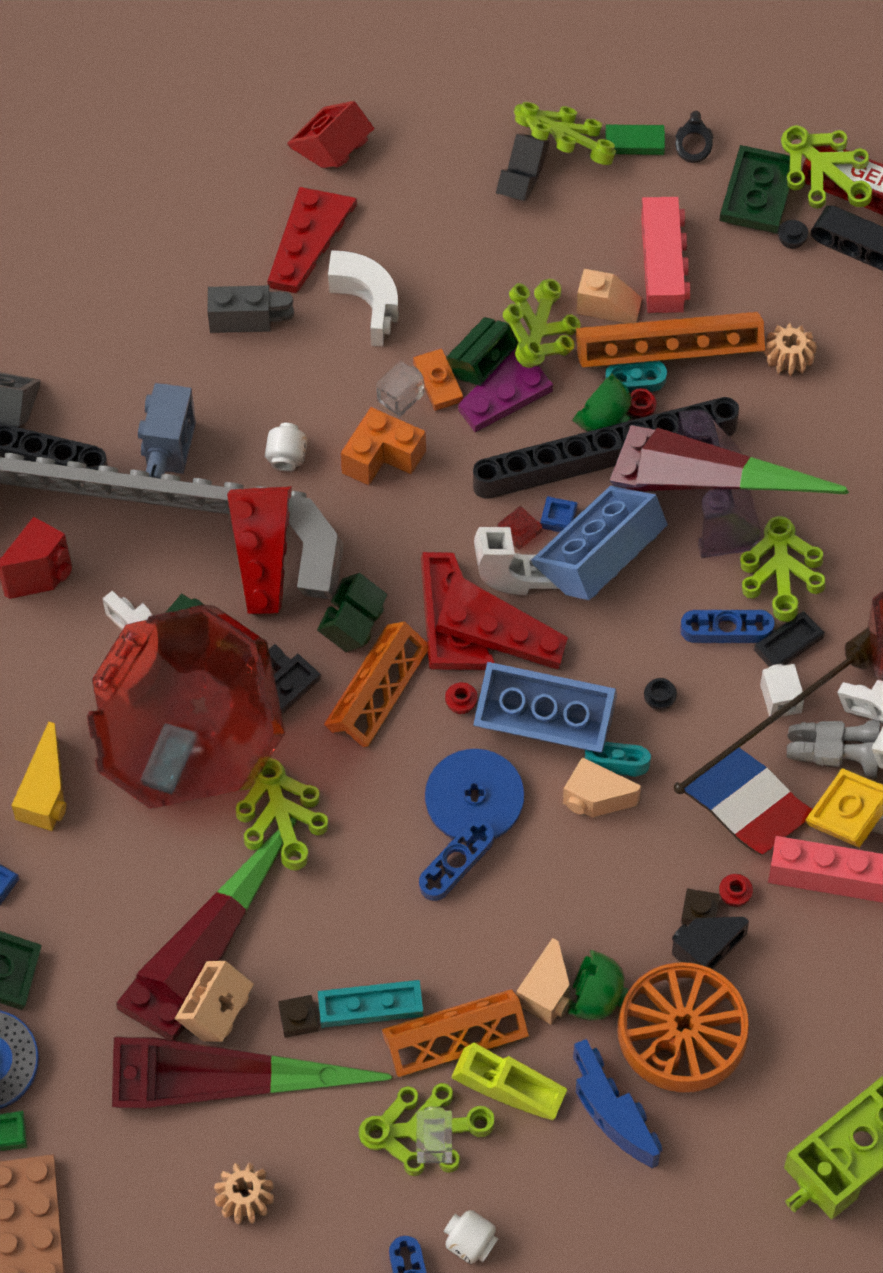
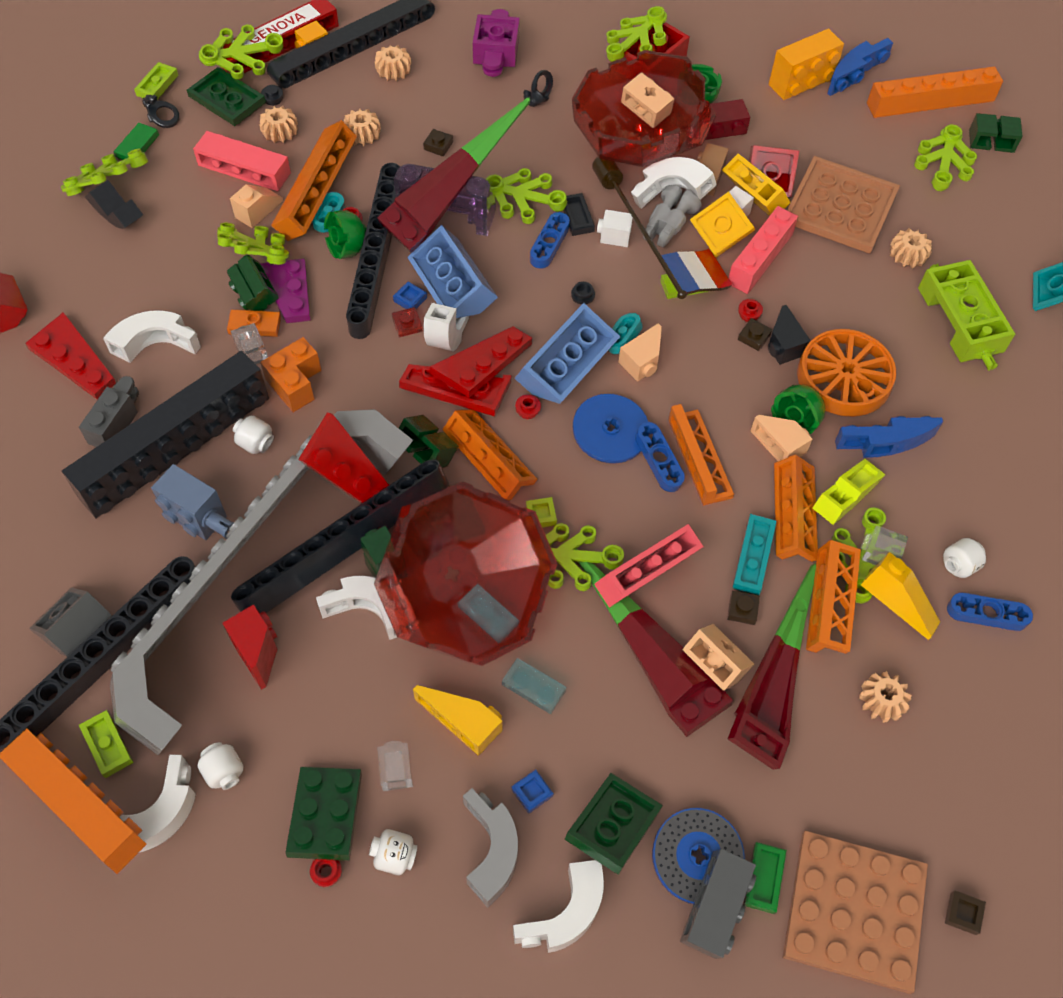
camera: 70 degrees left, 0 degrees up
(108, 837) = (534, 686): none -> clear light blue plate
(172, 575) = (337, 540): none -> black beam
(243, 370) = (166, 434): none -> black brick
(291, 889) = (648, 565): none -> coral brick
(321, 765) = (545, 511): none -> lime plate
(345, 1090) = (823, 598): none -> orange fence
(378, 1175) = (900, 591): none -> yellow slope
(475, 892) = (696, 459): none -> orange fence
(738, 109) = (156, 80): none -> lime plate
(742, 262) = (278, 124): none -> light nougat gear
(820, 442) = (438, 142): none -> dark brown plate

